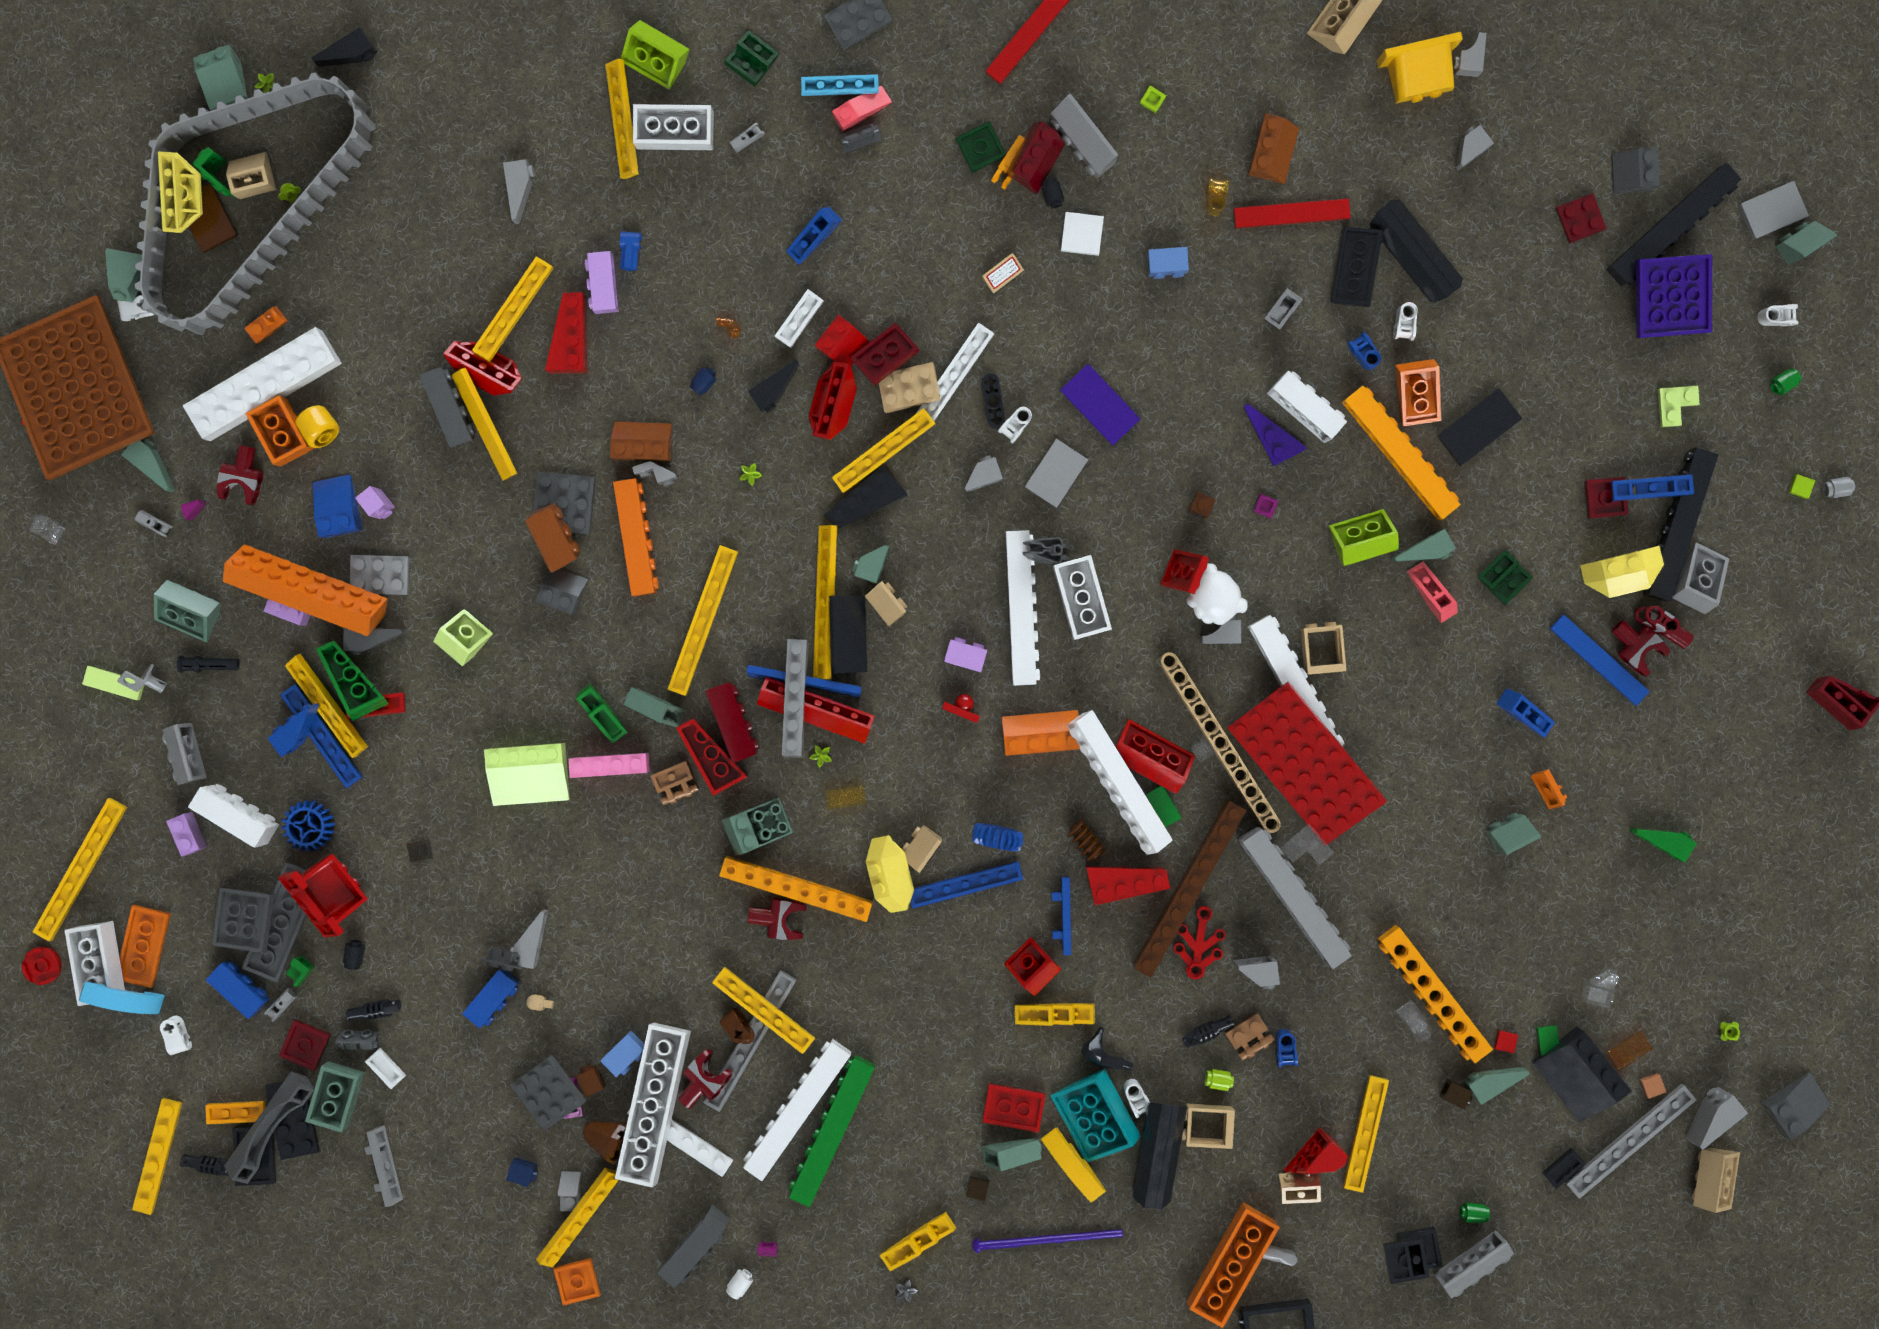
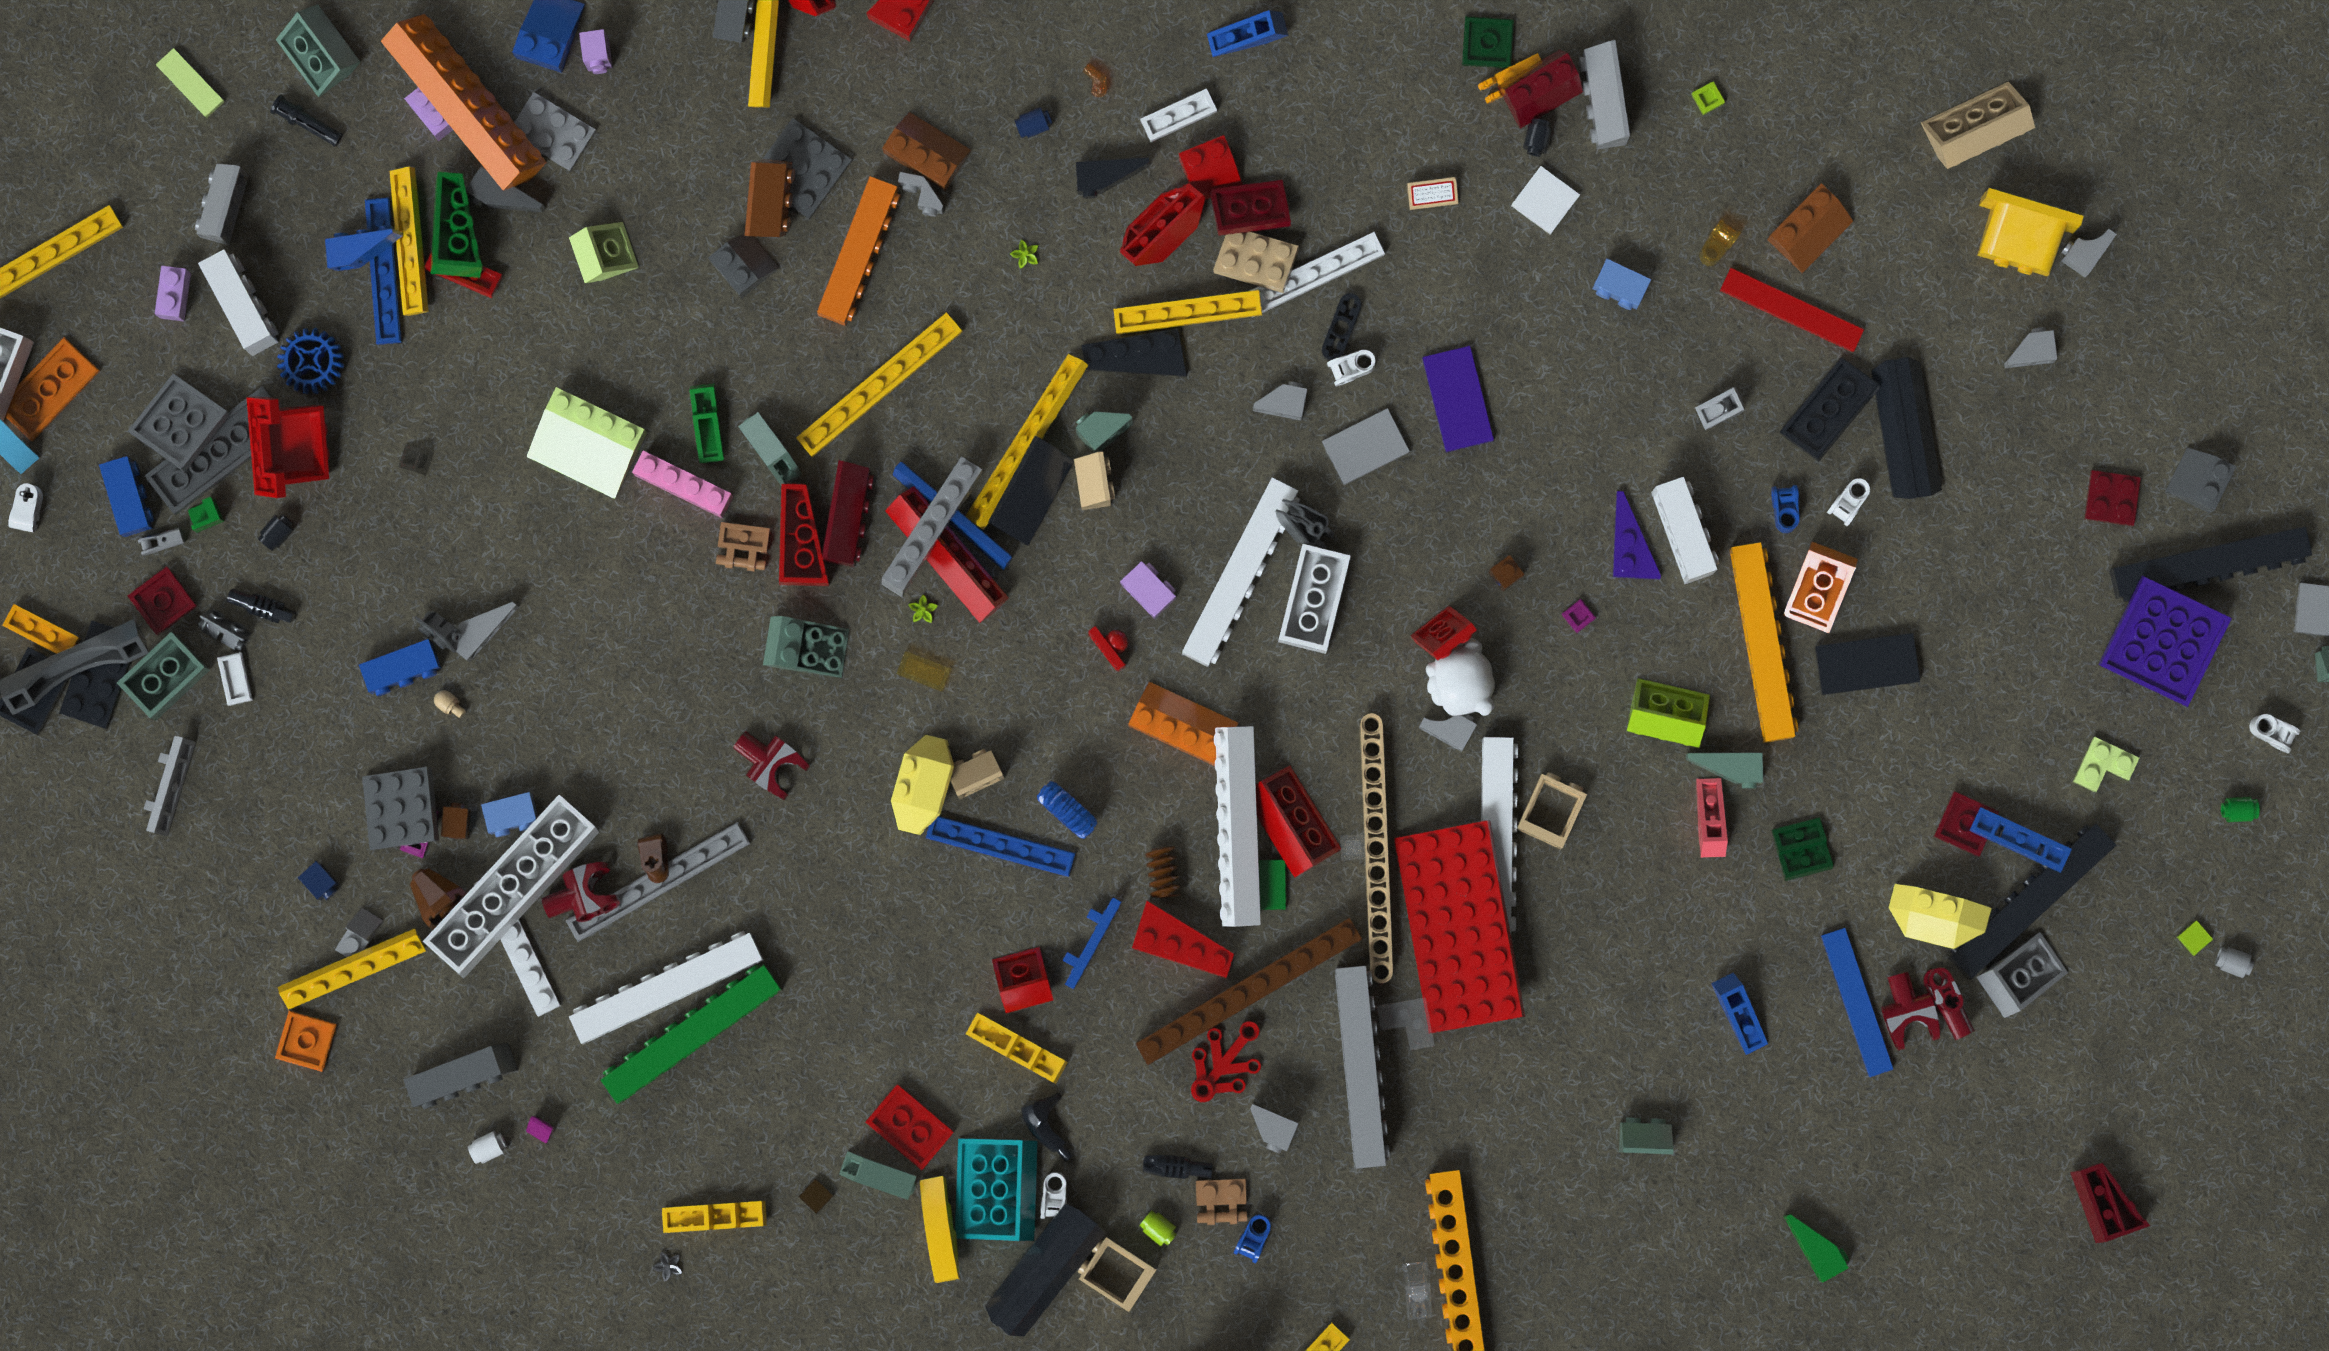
camera: 30 degrees right, 5 degrees down
(146, 679) = (229, 98): light grey bracket -> none
(763, 1010) = (694, 854): yellow plate -> none
(796, 888) = (809, 740): light orange brick -> none
(1060, 1238) = (812, 1277): dark purple bar -> none
(1549, 789) = (1717, 1114): orange plate -> none

